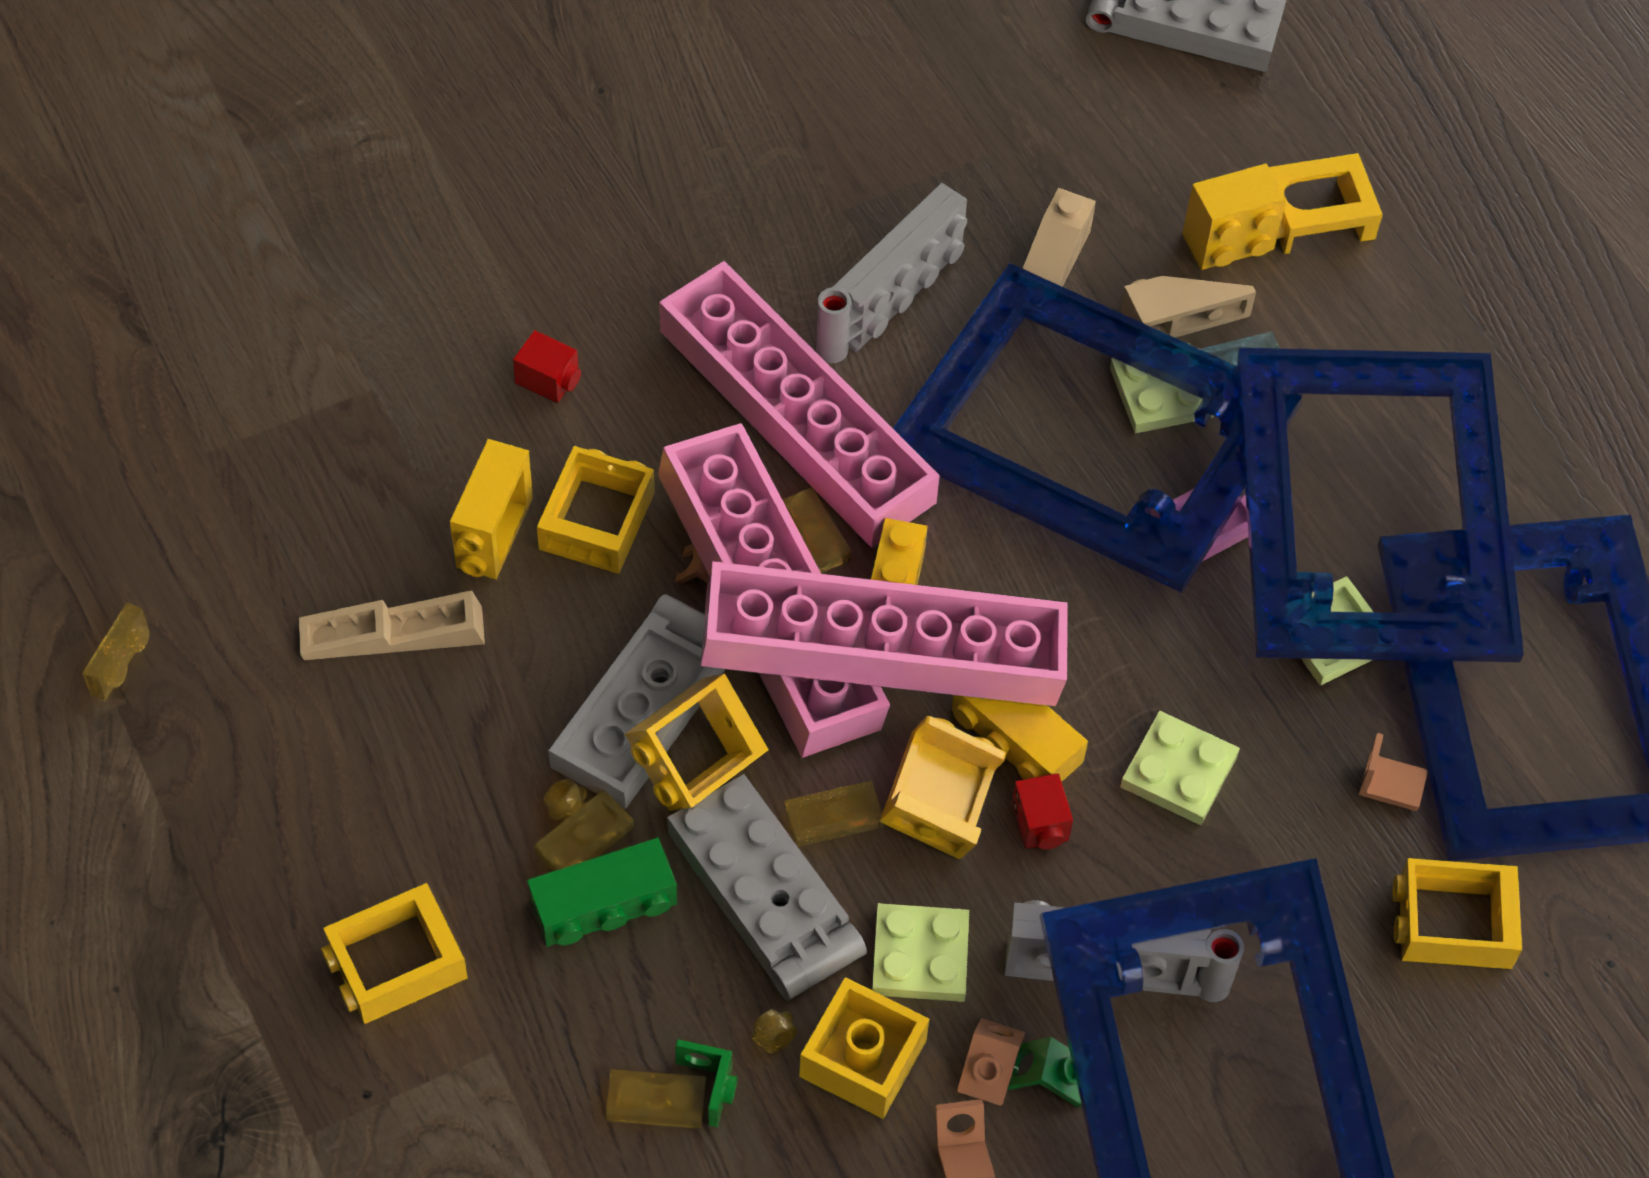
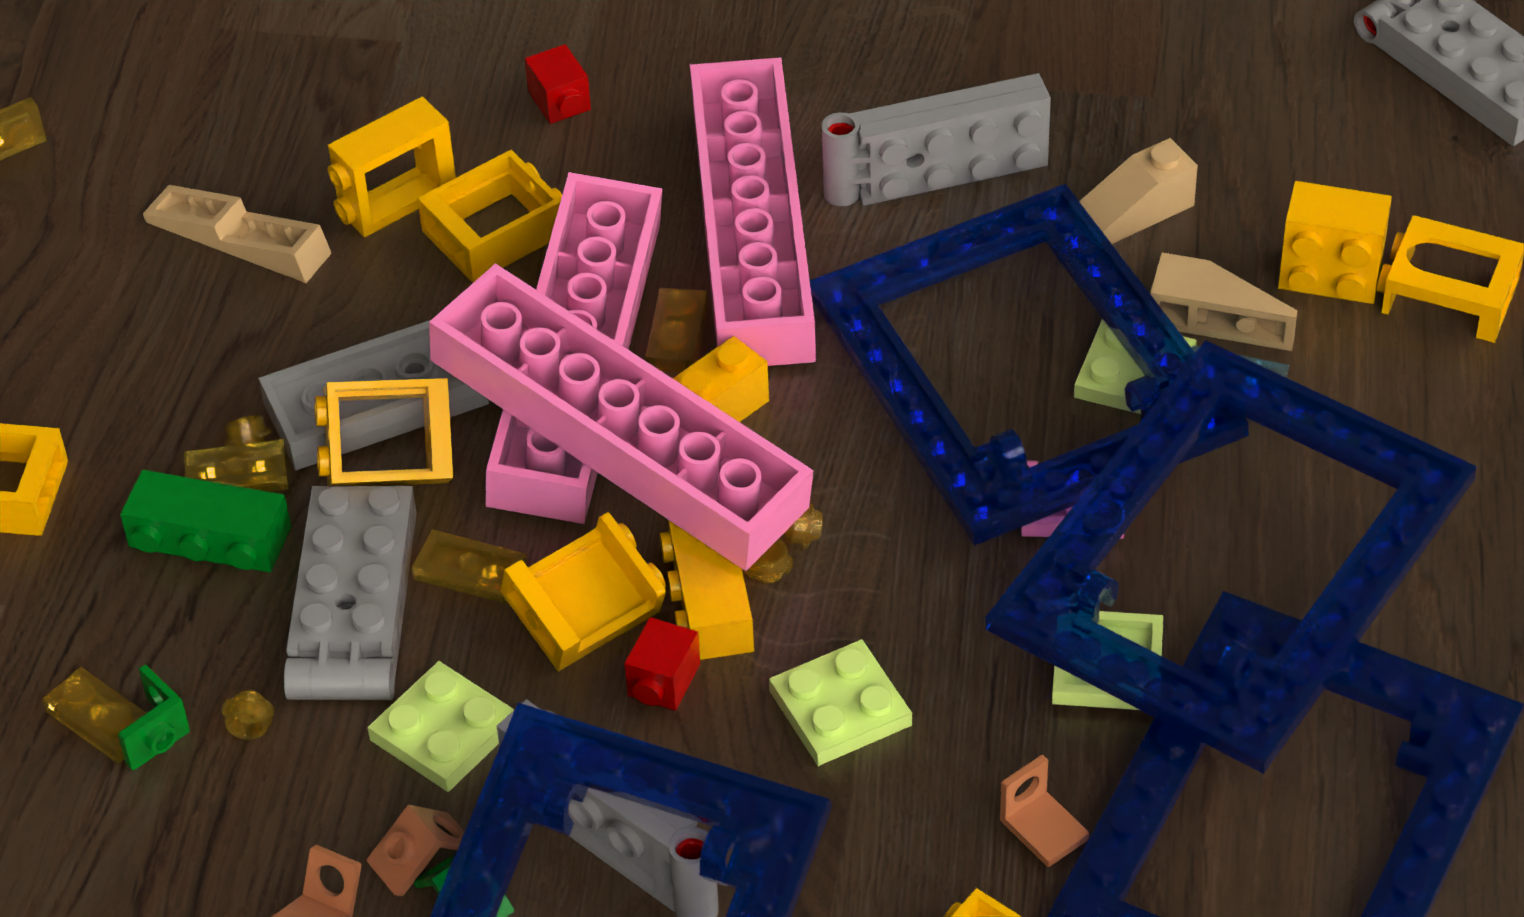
camera: 40 degrees right, 10 degrees down
(863, 1047) = (303, 765): yellow brick -> none

